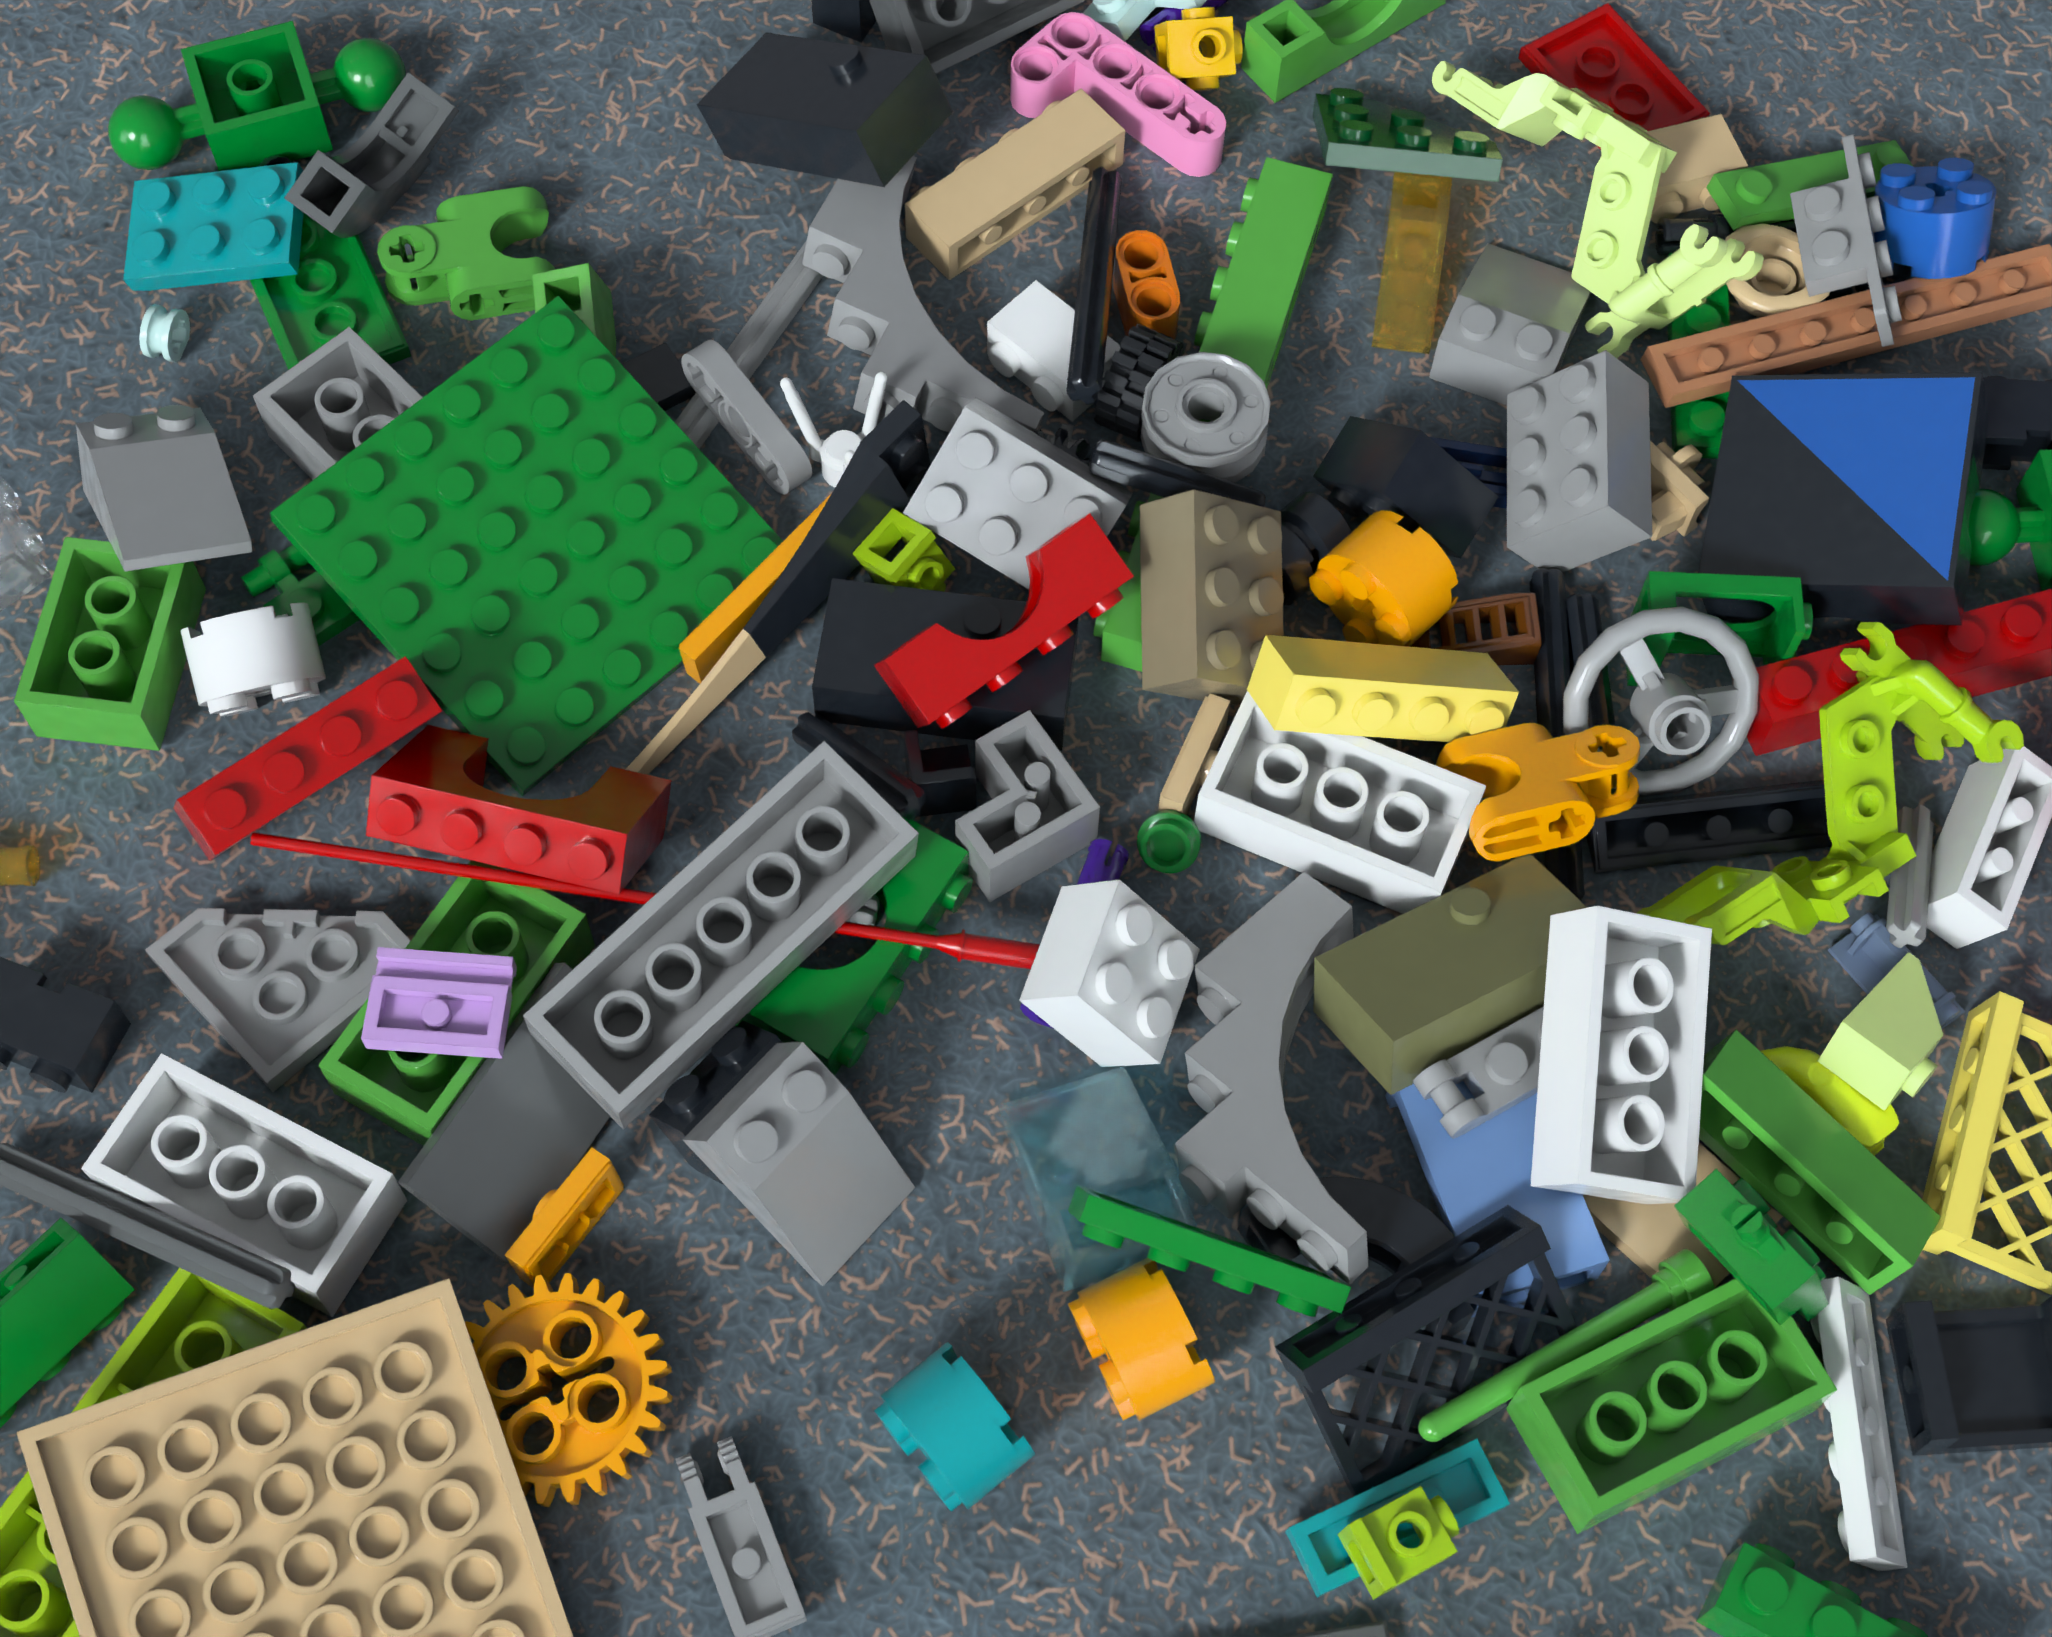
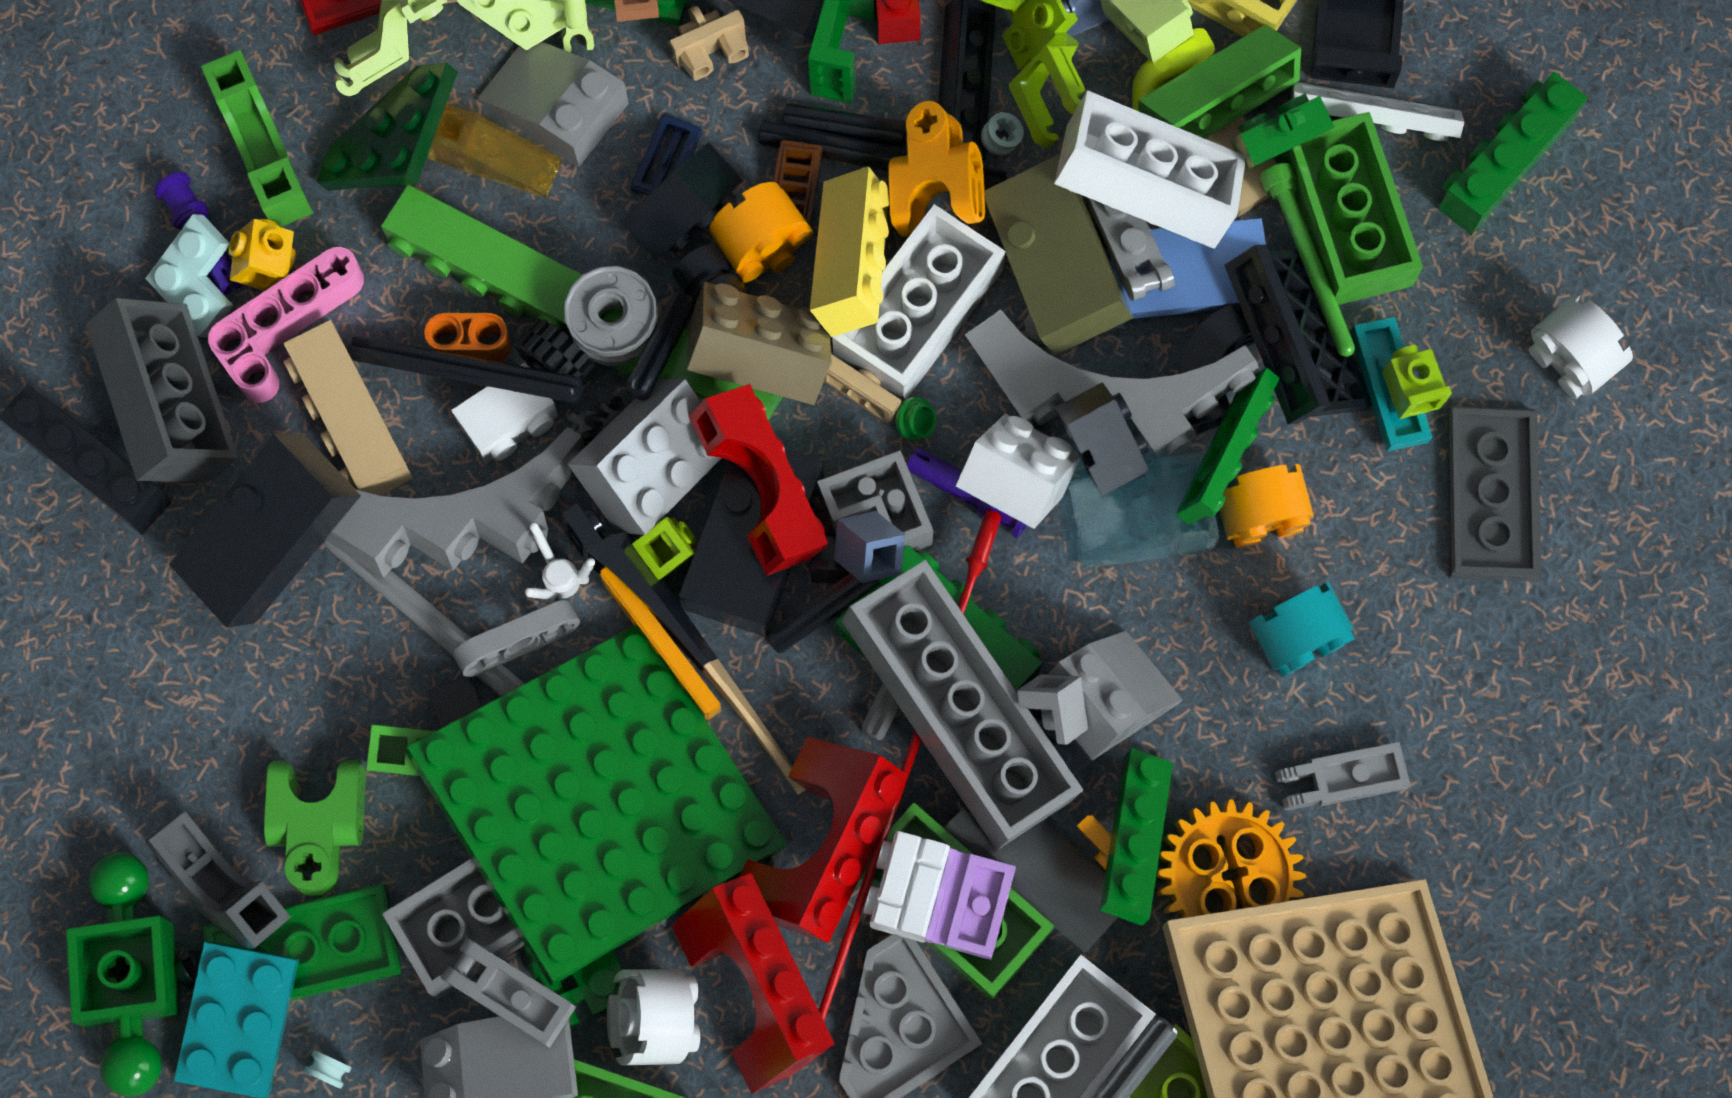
camera: 75 degrees left, 10 degrees up
(250, 469) = (510, 993): none -> light grey plate
(452, 909) = (908, 885): none -> white brick
(585, 1231) = (1136, 837): none -> green plate
(738, 1053) = (1060, 704): none -> light grey panel
(939, 780) = (869, 547): none -> sand blue brick
(1180, 1067) = (1103, 438): none -> black brick
(1579, 464) = (695, 83): light grey brick -> none
(1637, 862) = (1012, 127): none -> light aqua bush
(1663, 704) = (898, 79): light grey piece -> none

